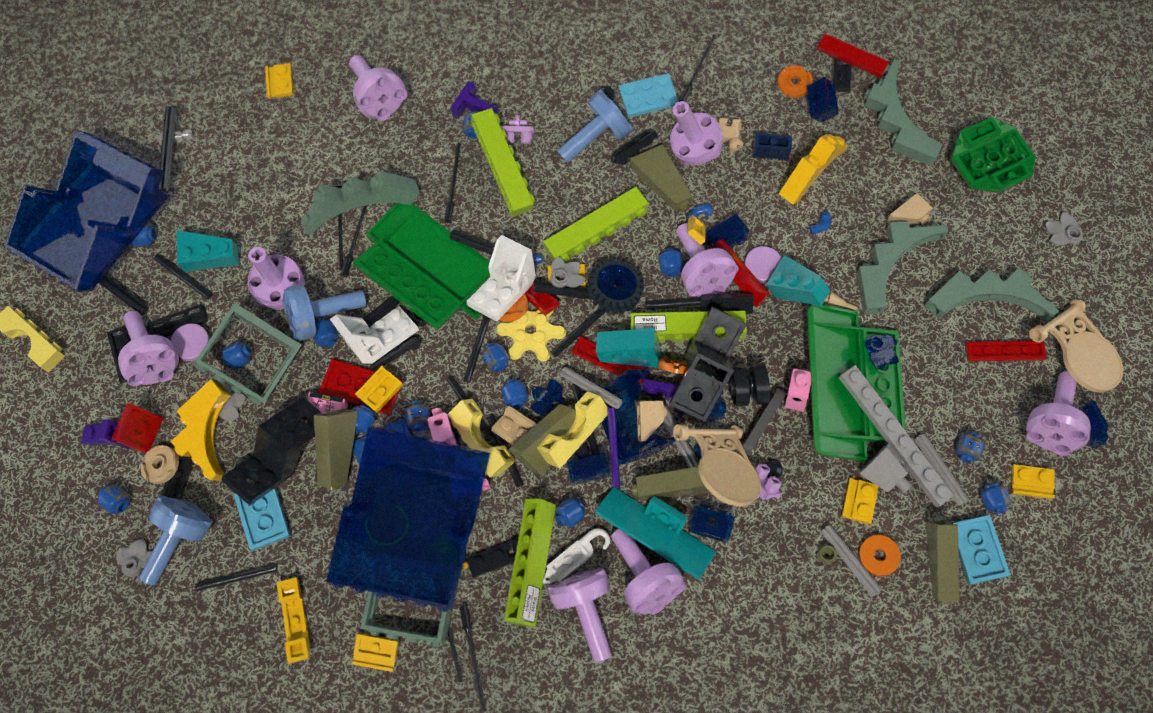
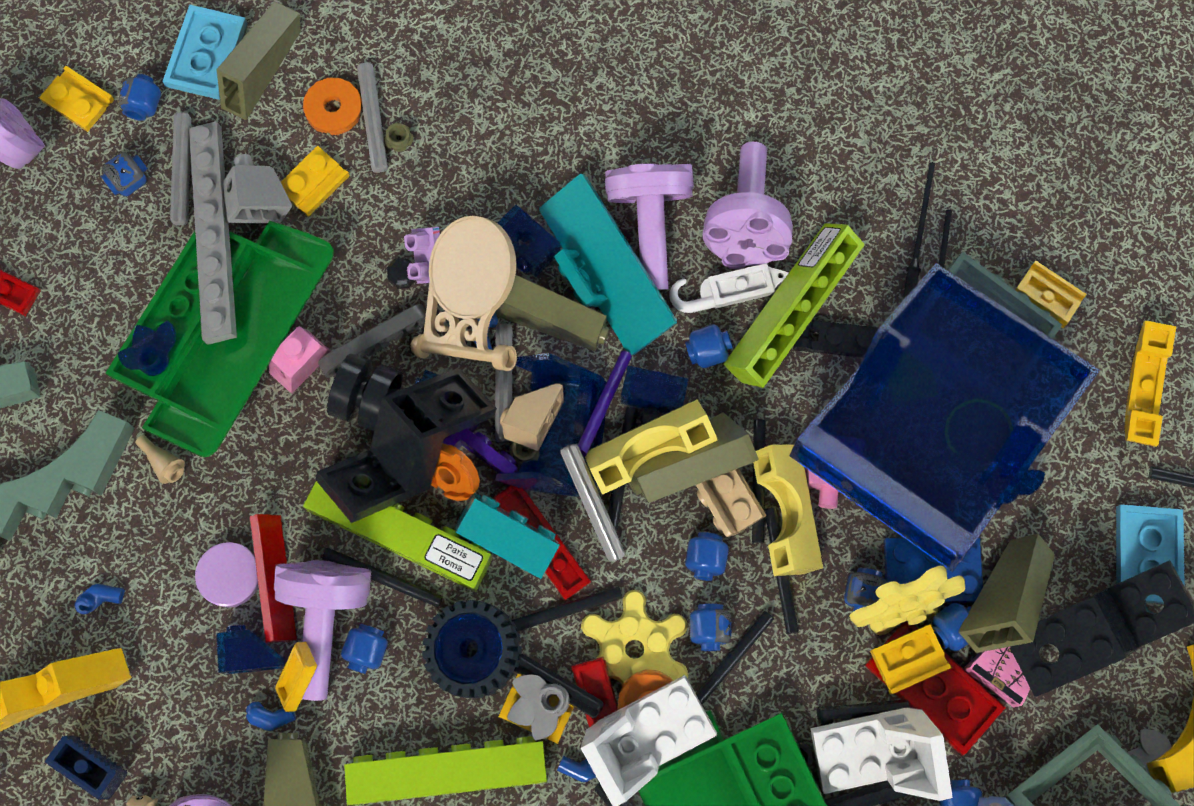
camera: 160 degrees left, 5 degrees up
(392, 408) = (908, 601): none -> light yellow plate
(441, 427) = (842, 531): bright pink torso -> none
(546, 396) = (660, 532): clear blue plate -> none
(728, 302) = (321, 537): black plate -> none
(797, 283) = (202, 506): teal wedge -> none

